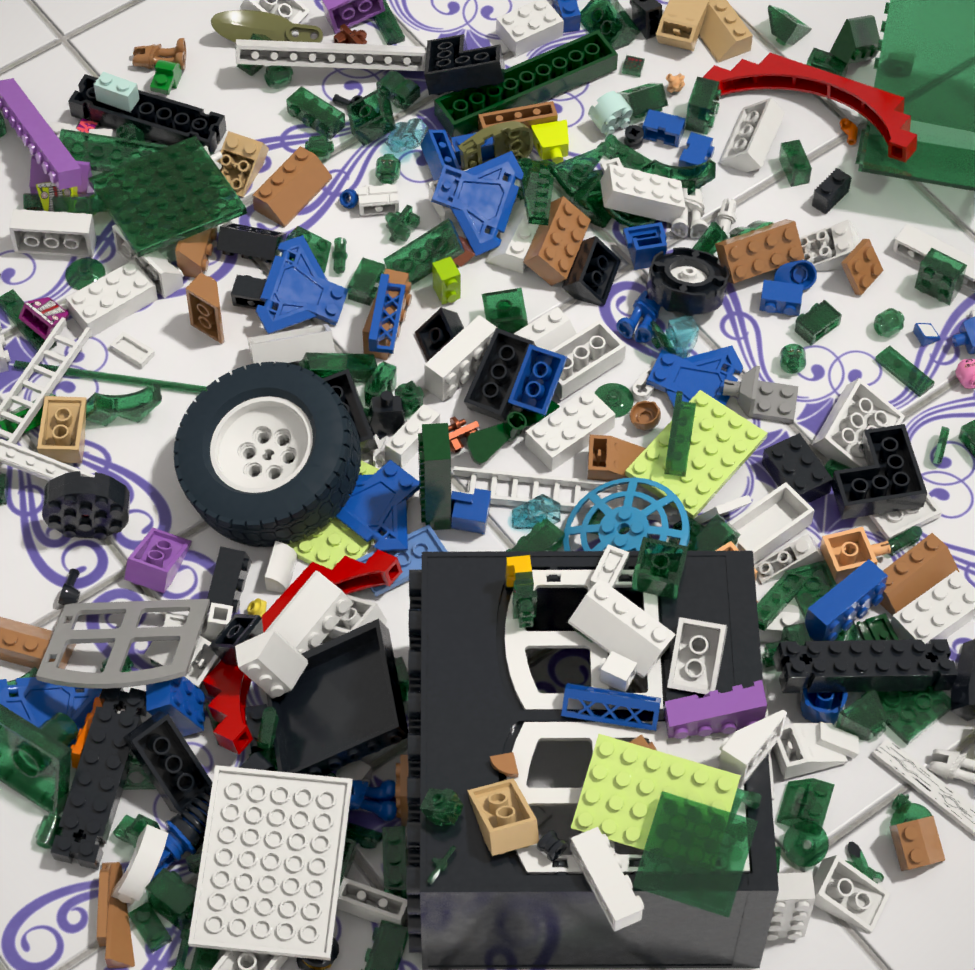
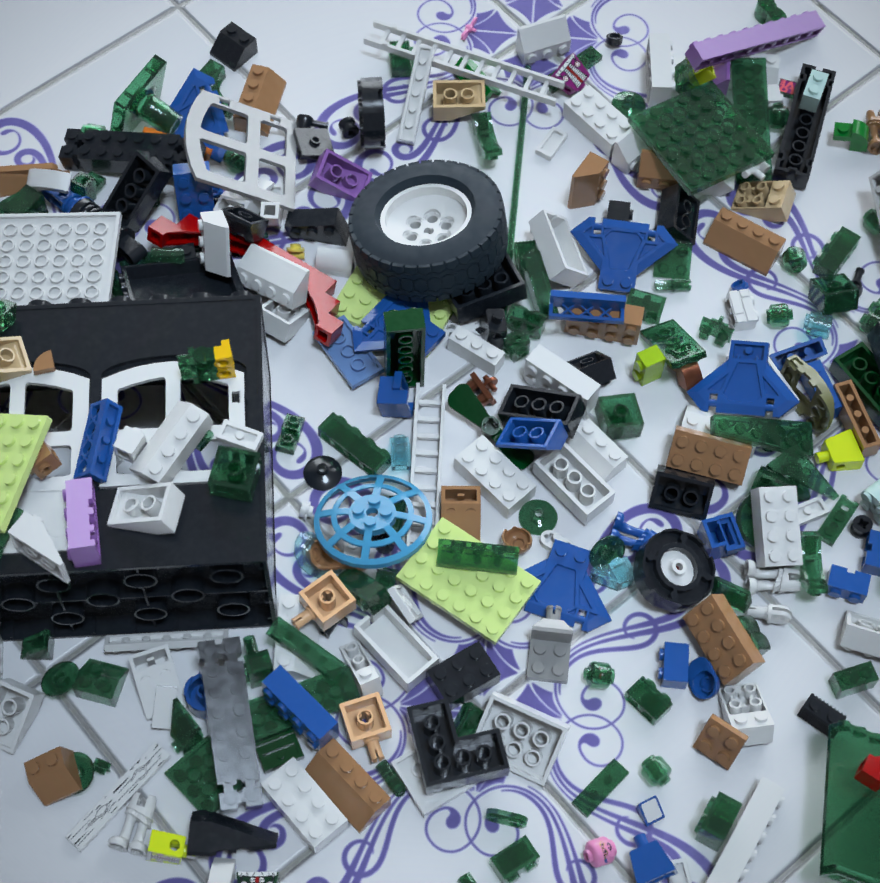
camera: 85 degrees right, 5 degrees up
(83, 547) = (348, 127): none -> black wheel
(102, 585) = (312, 142): none -> plate
(860, 863) = (42, 727): clear green piece -> none

